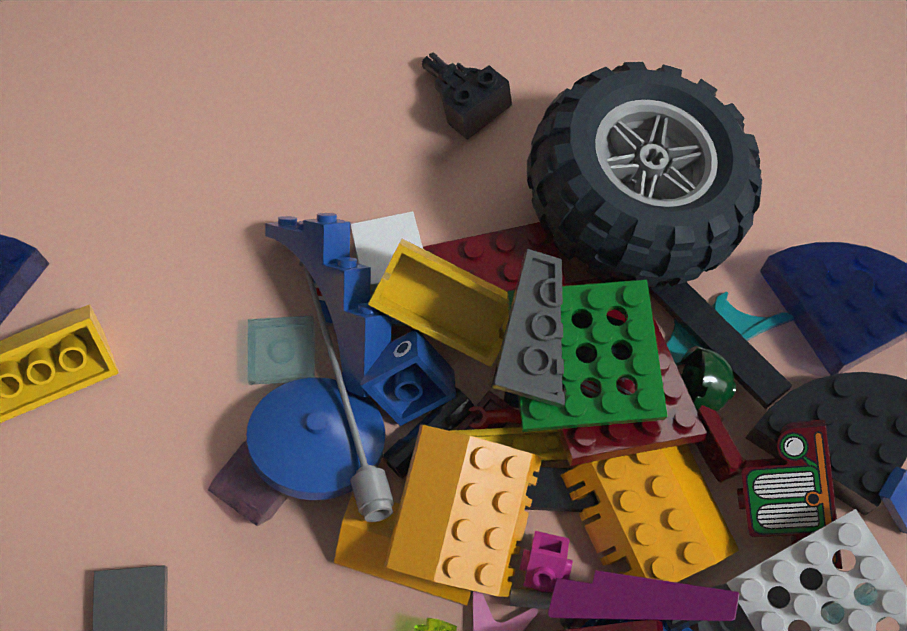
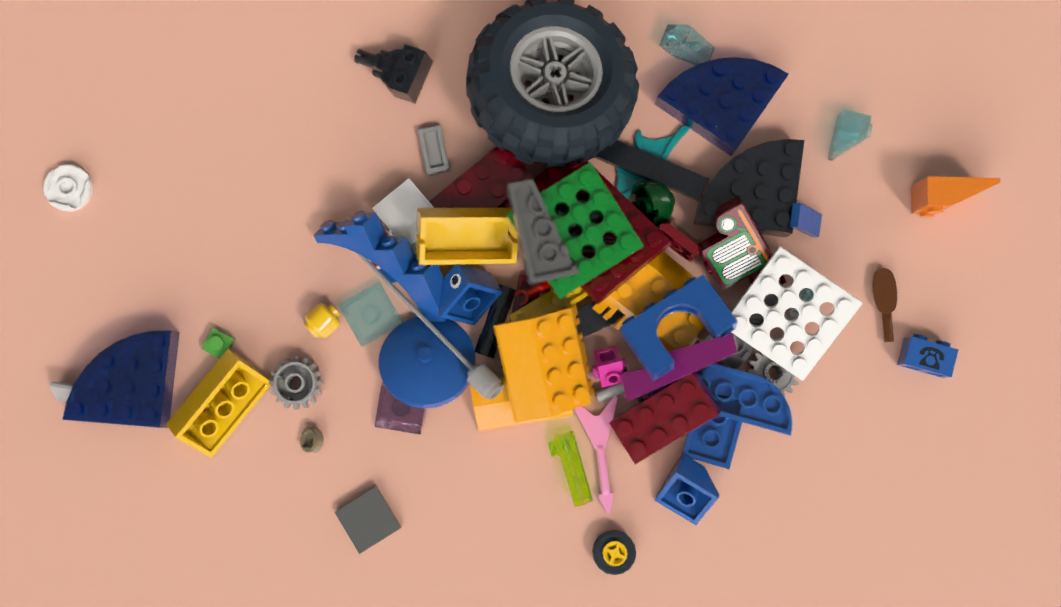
camera: 30 degrees left, 15 degrees up
(30, 53) = (68, 187): none -> white tile
(83, 293) = (217, 343): none -> bright green plate
(121, 465) = (311, 440): none -> dark tan tile
(153, 399) = (283, 383): none -> light grey gear
(219, 327) = (322, 320): none -> yellow head
(460, 200) = (433, 150): none -> light grey tile
(704, 521) = (694, 298): none -> blue arch
(832, 215) = (686, 44): none -> clear light blue slope

